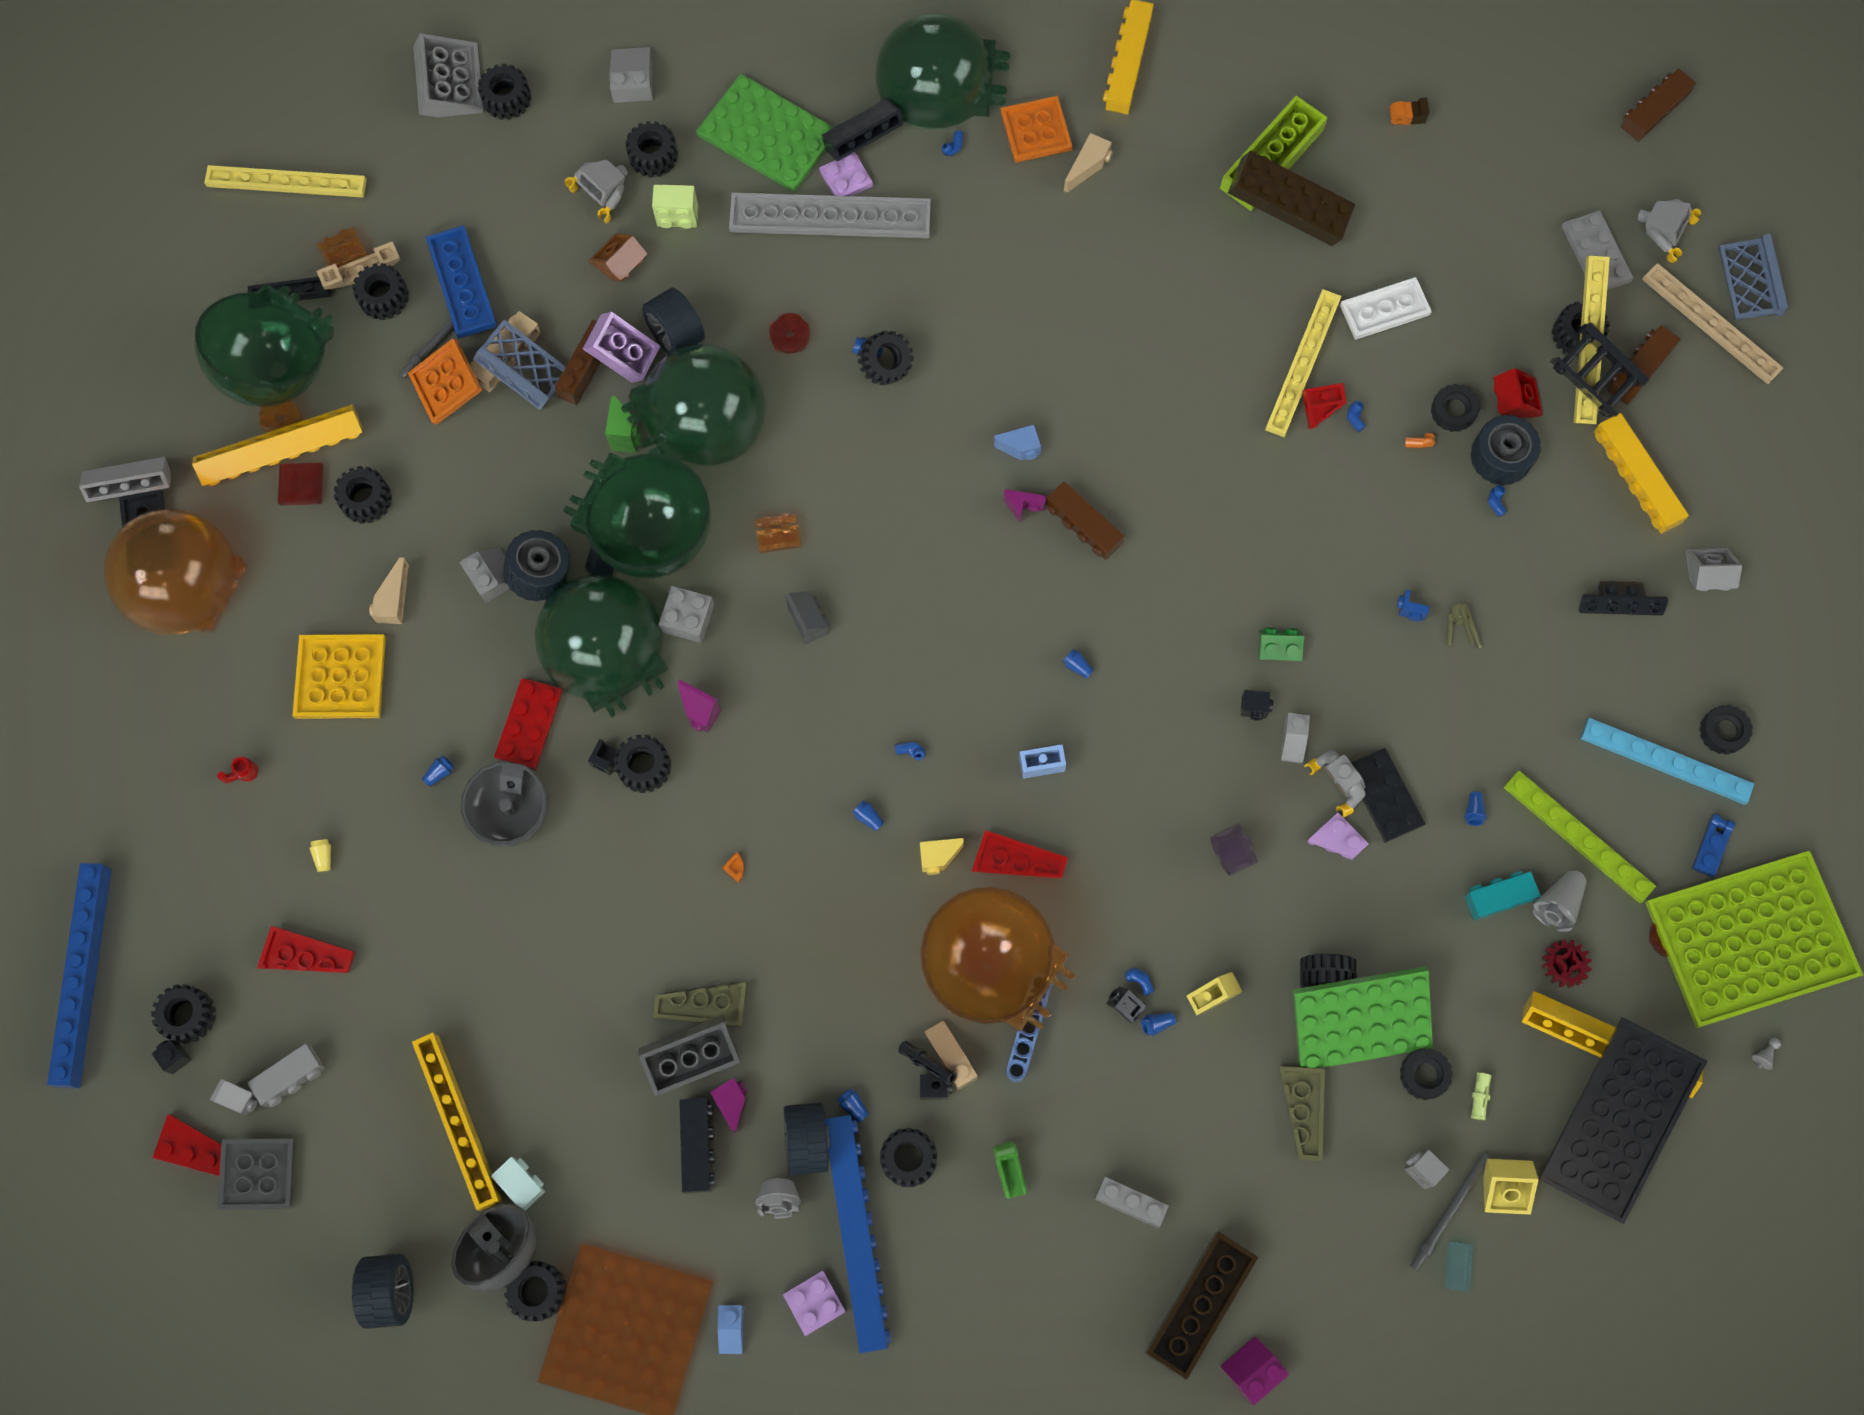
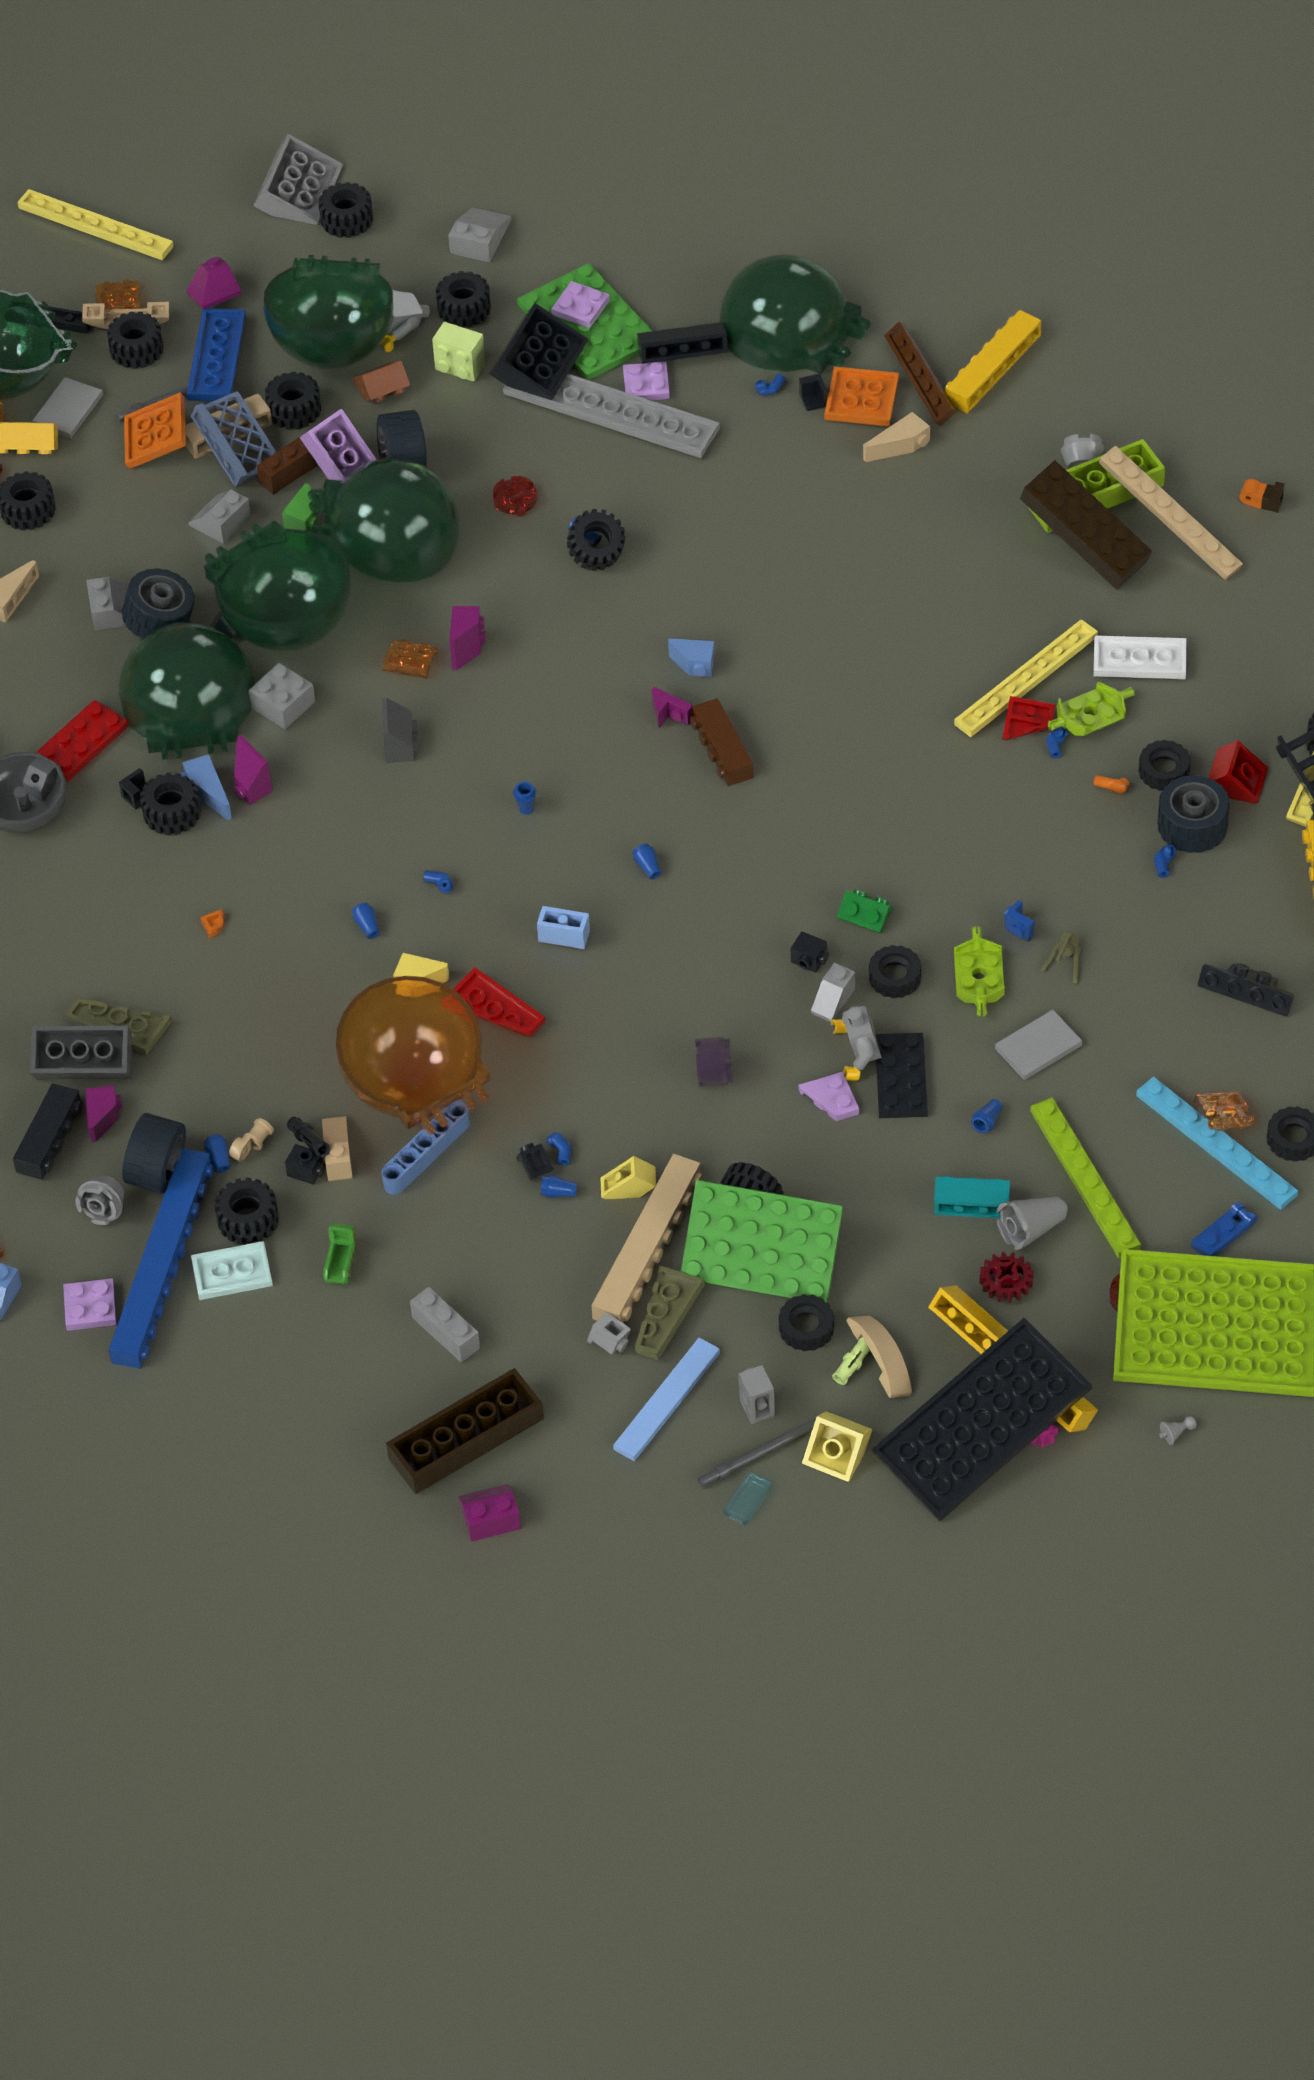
camera: 25 degrees right, 20 degrees down
(351, 380) = (69, 406): none -> light grey tile
(423, 210) = (213, 283): none -> magenta slope
(543, 445) = (222, 516): none -> light grey slope
(548, 208) = (329, 310): none -> clear green windscreen
(549, 291) = (293, 400): none -> black tyre
(658, 725) = (208, 784): none -> medium blue slope
(746, 185) = (539, 354): none -> black slope
(756, 120) = (580, 304): none -> lavender plate
(819, 495) = (466, 634): none -> magenta slope
(878, 1076) = (253, 1140): none -> tan connector
(920, 1217) = (231, 1270): none -> light aqua tile
(947, 636) = (525, 796): none -> blue cone
(994, 139) = (813, 392): none -> black panel
(1074, 89) = (920, 373): none -> reddish brown plate
(1249, 125) = (1080, 450): none -> light grey cone
(1258, 1047) = (647, 1239): none -> tan brick
(1277, 1149) = (609, 1334): none -> light grey brick
(1334, 679) = (894, 987): none -> black tyre
(1346, 1196) = (666, 1399): none -> light blue tile
(1349, 159) = (1170, 513): none -> tan plate
(1378, 364) = (1103, 702): none -> lime plate
(1397, 654) = (979, 957): none -> lime plate
(1481, 721) = (1038, 1044): none -> light grey tile
(1504, 1077) = (886, 1352): none -> tan slope
(1658, 726) = (1222, 1105): none -> clear orange plate

